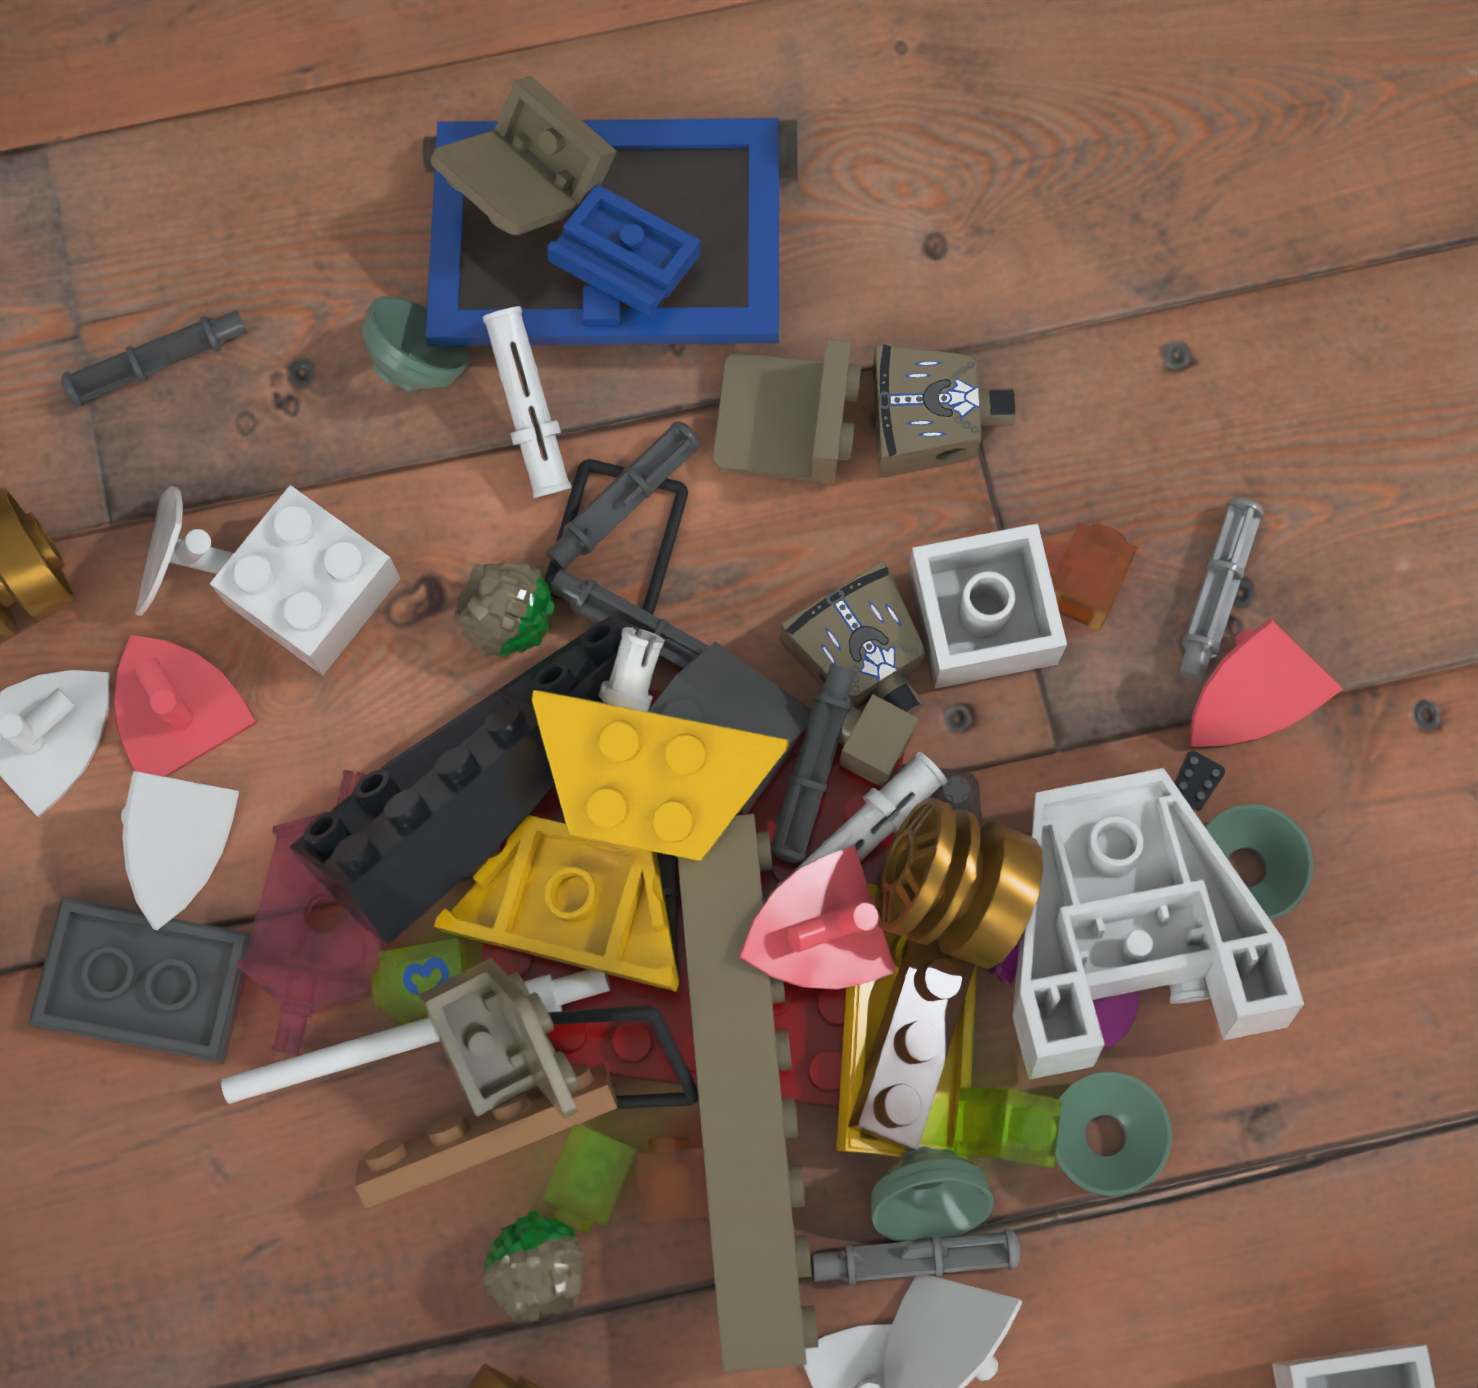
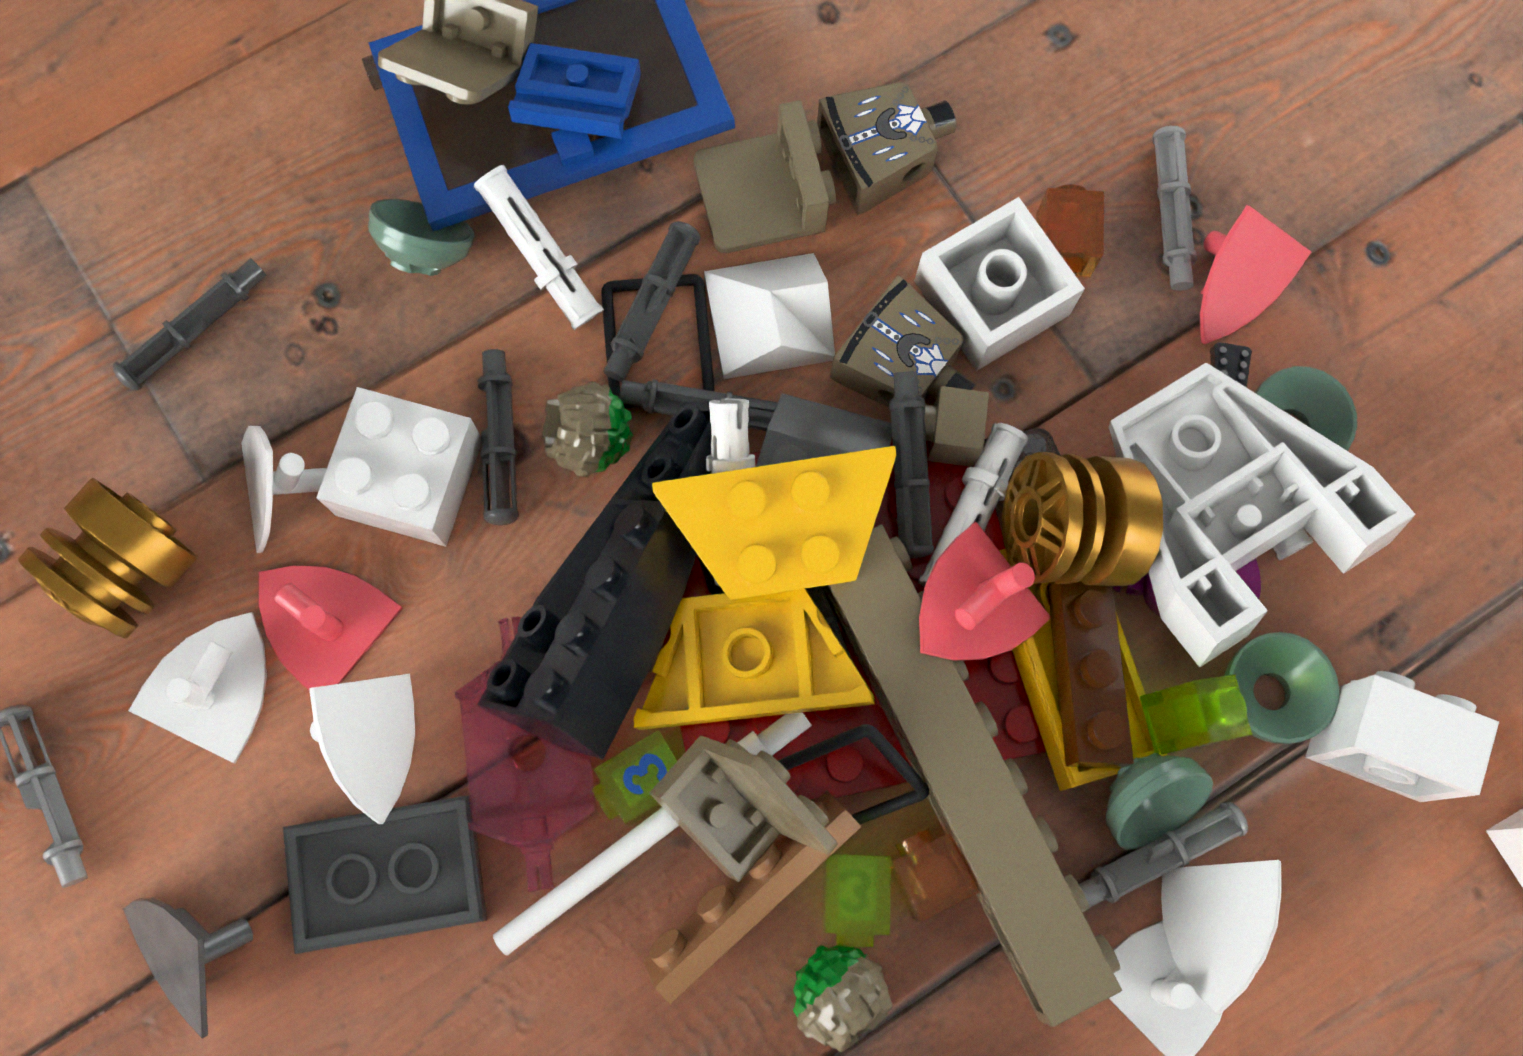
camera: 25 degrees left, 0 degrees up
(413, 587) = (498, 440): none -> dark grey piece
(741, 553) = (771, 315): none -> white slope
(1210, 1230) = (1406, 739): none -> white brick

